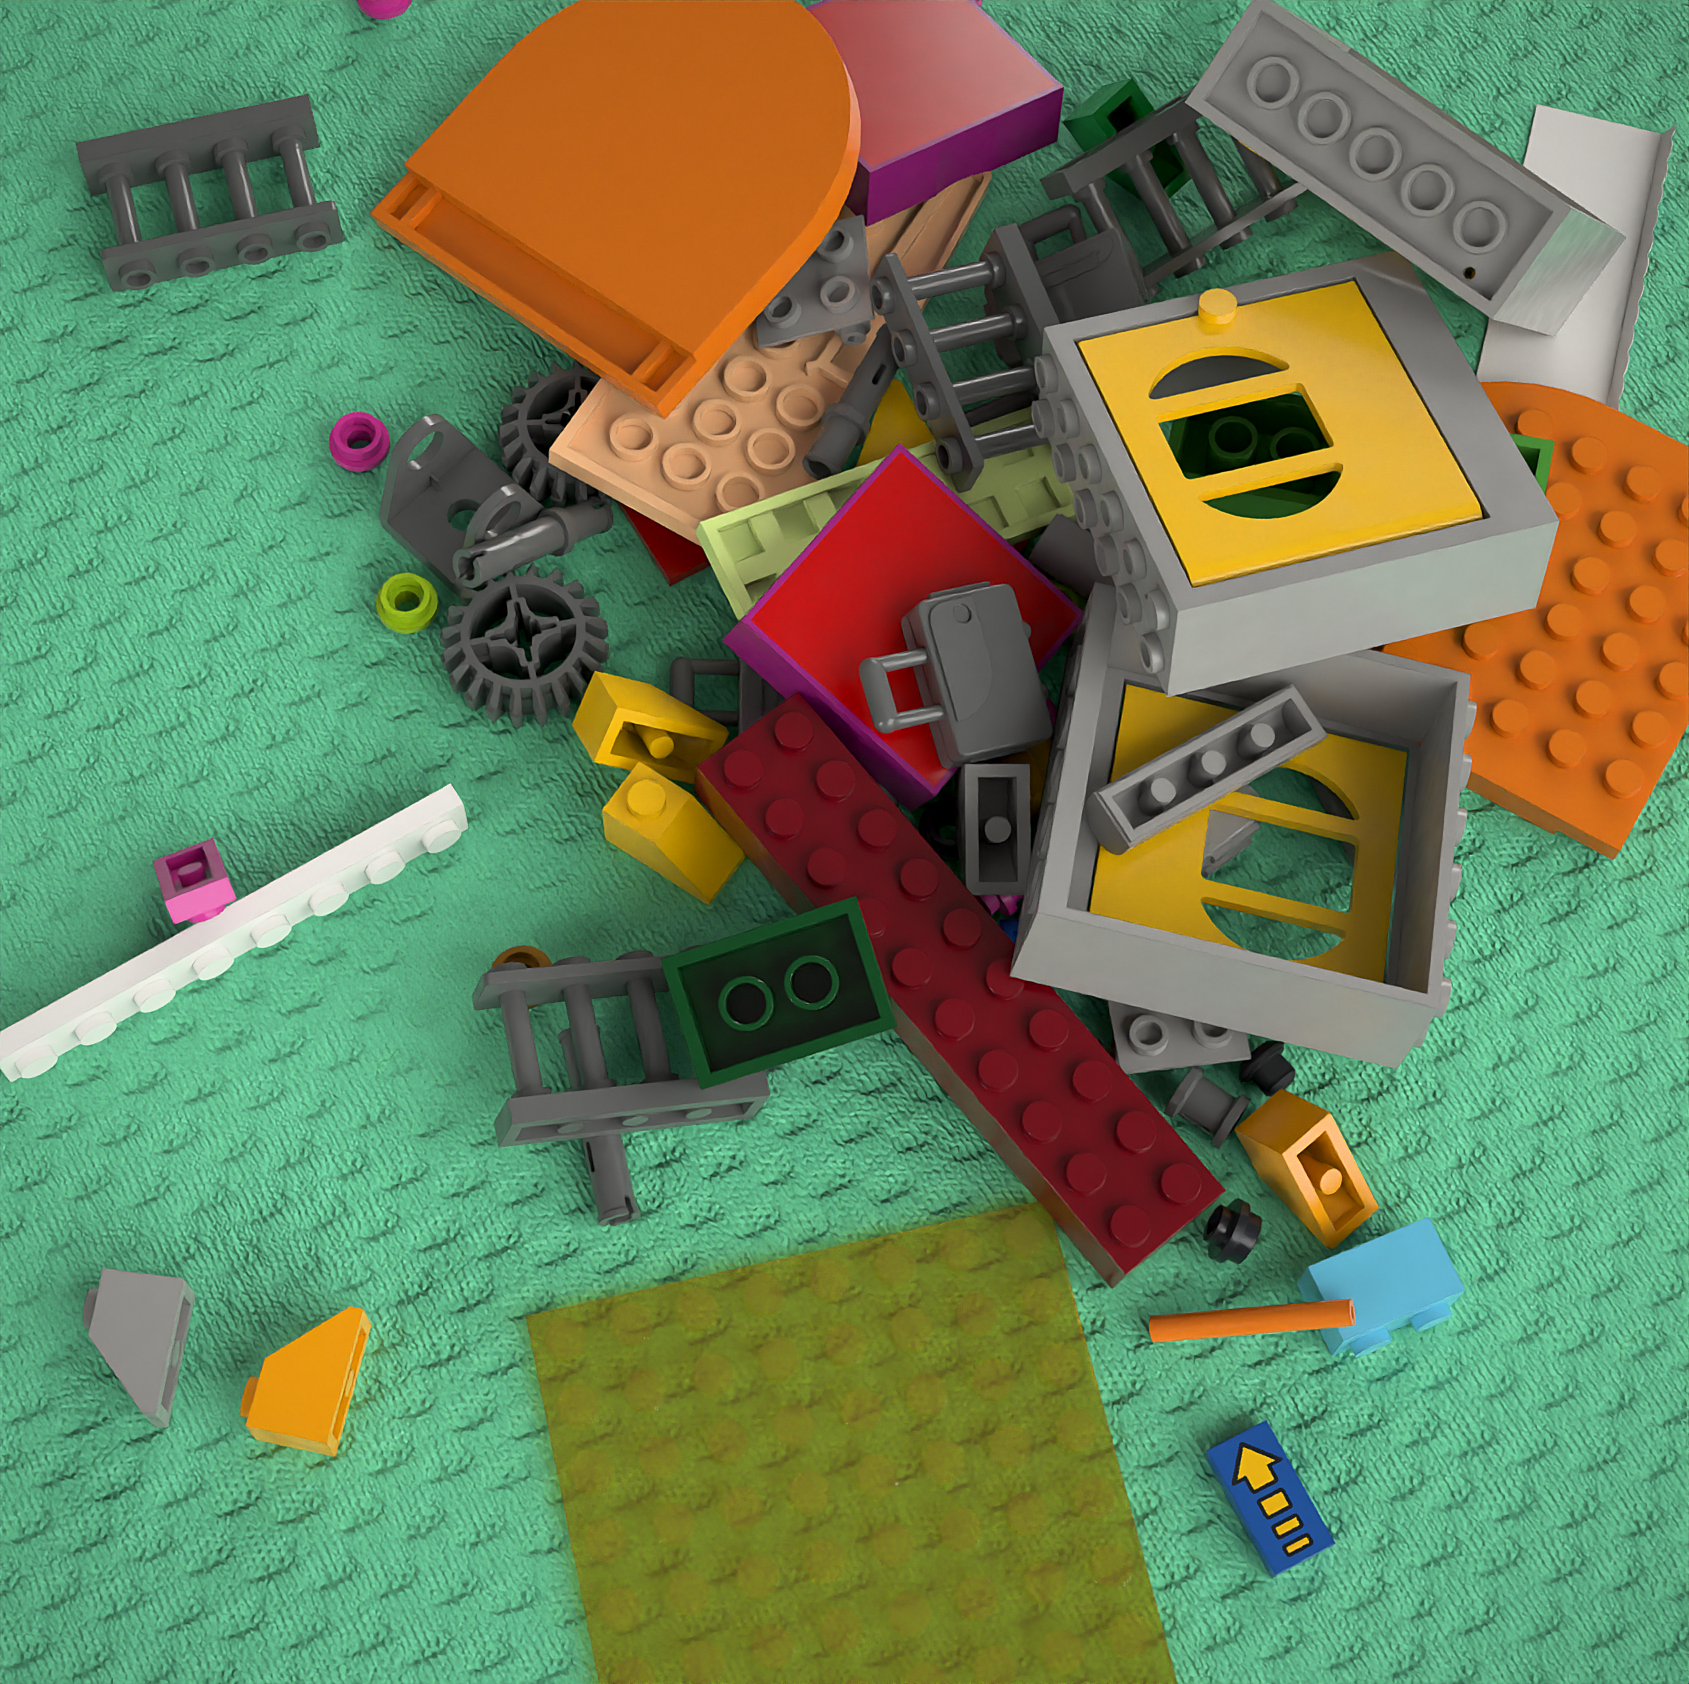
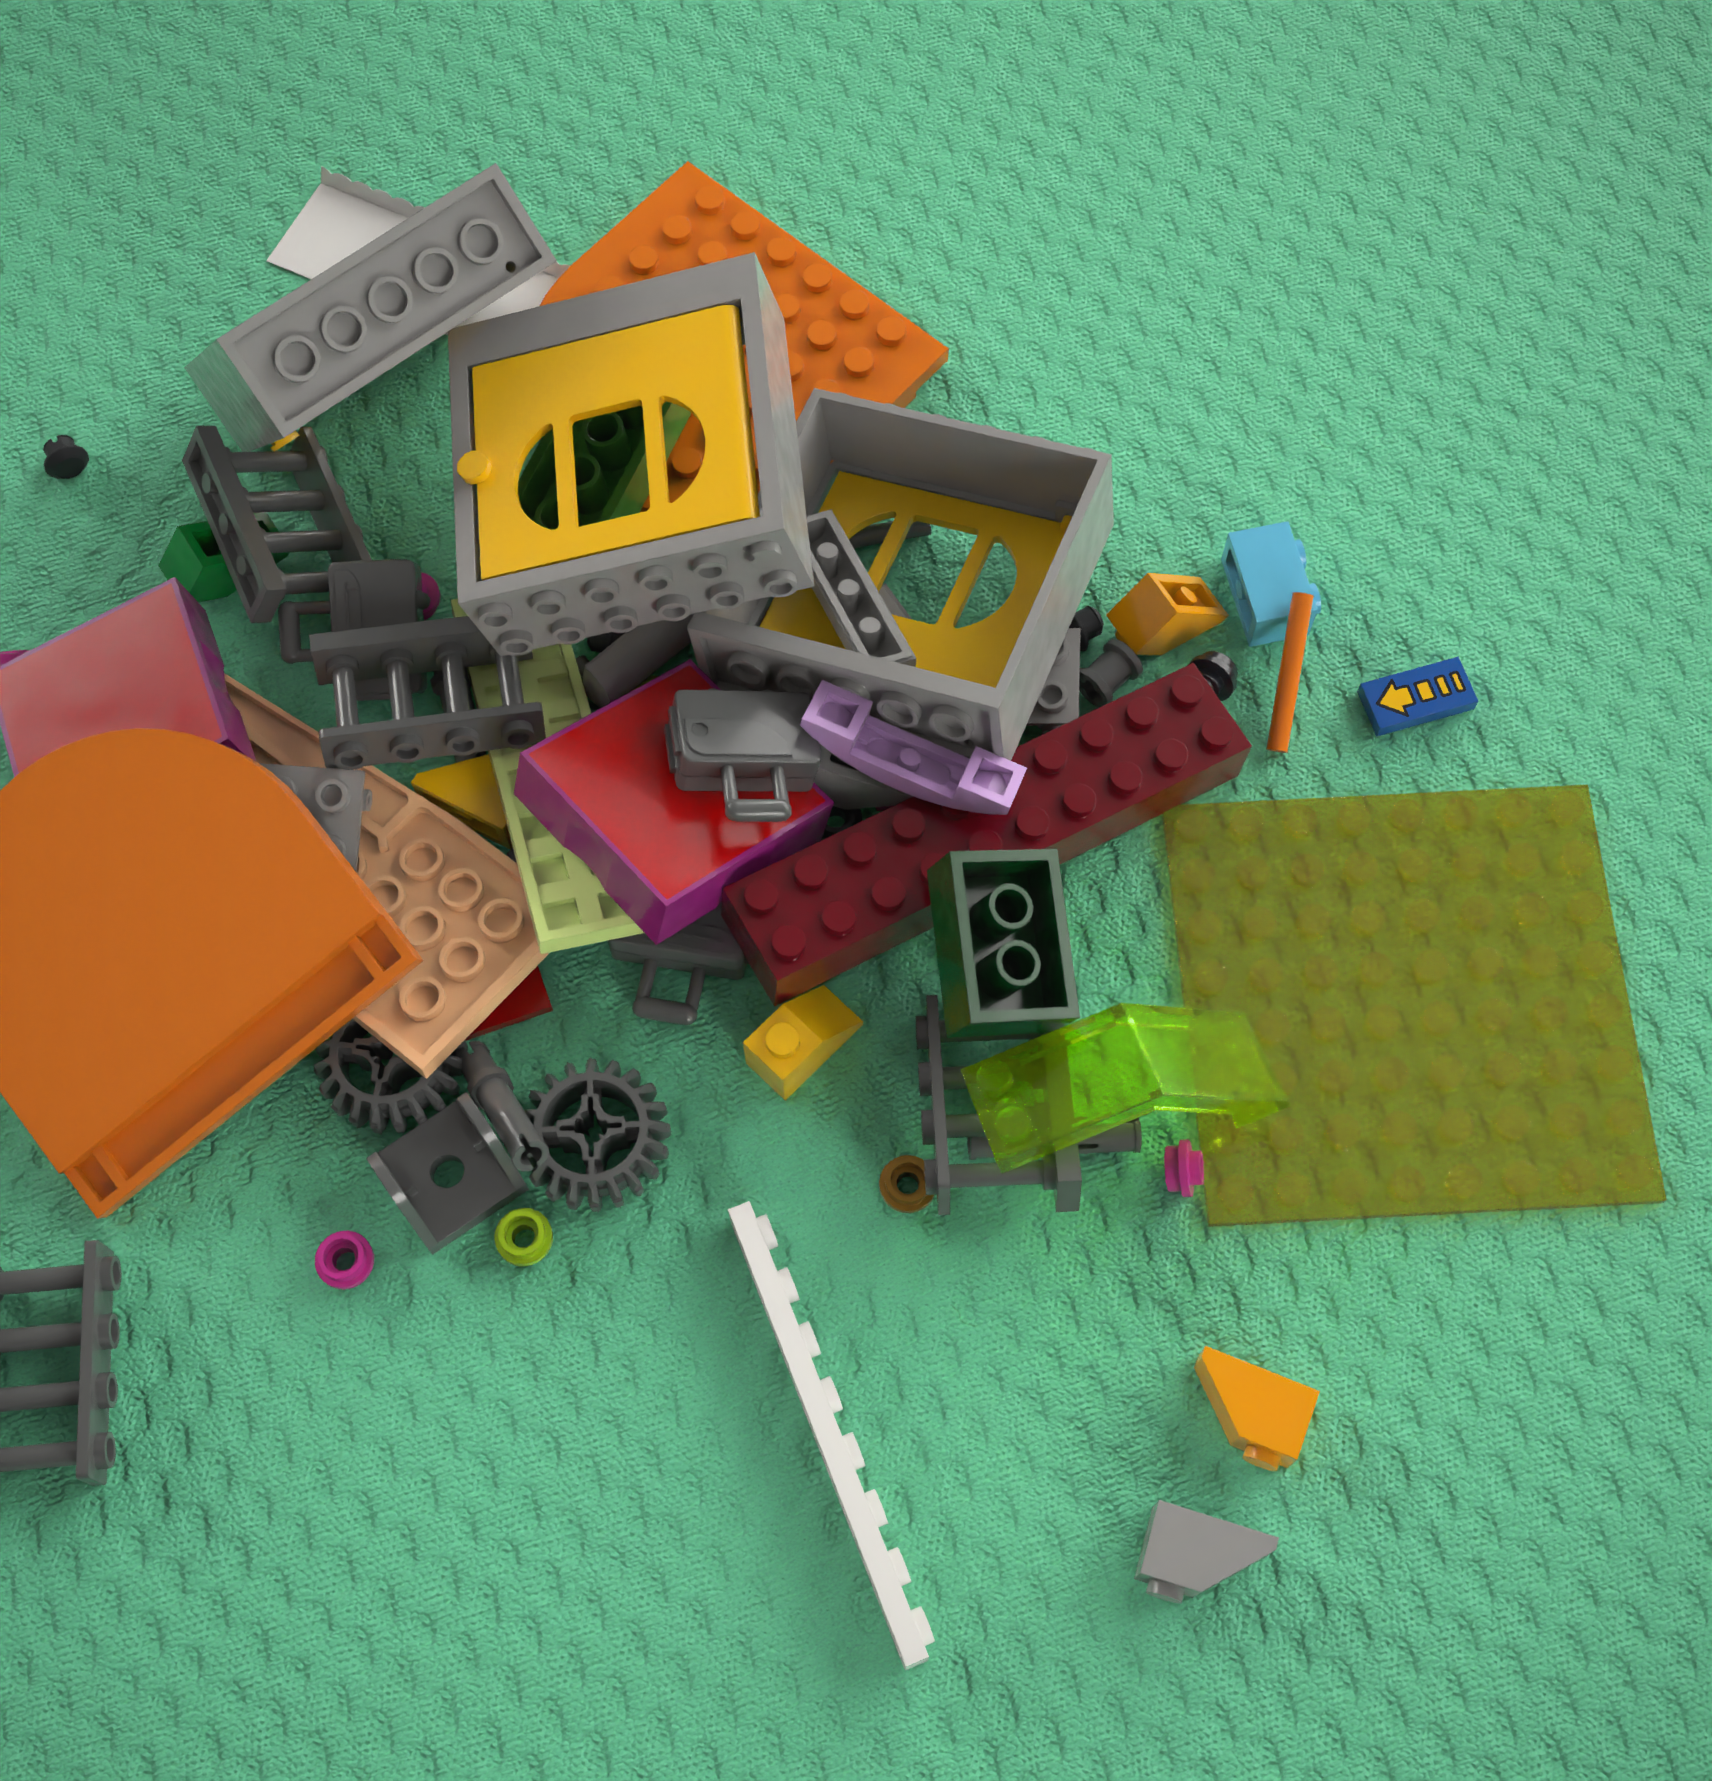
camera: 75 degrees left, 0 degrees up
(194, 882) = (777, 1453): dark pink plate -> none
(582, 1272) = (1183, 1168): none -> dark pink plate
(638, 722) = (702, 1041): yellow slope -> none
(664, 1172) = (1116, 1071): none -> clear neon green windscreen
(847, 421) = (453, 815): dark grey pin -> none
(996, 855) = (907, 761): none -> lavender slope

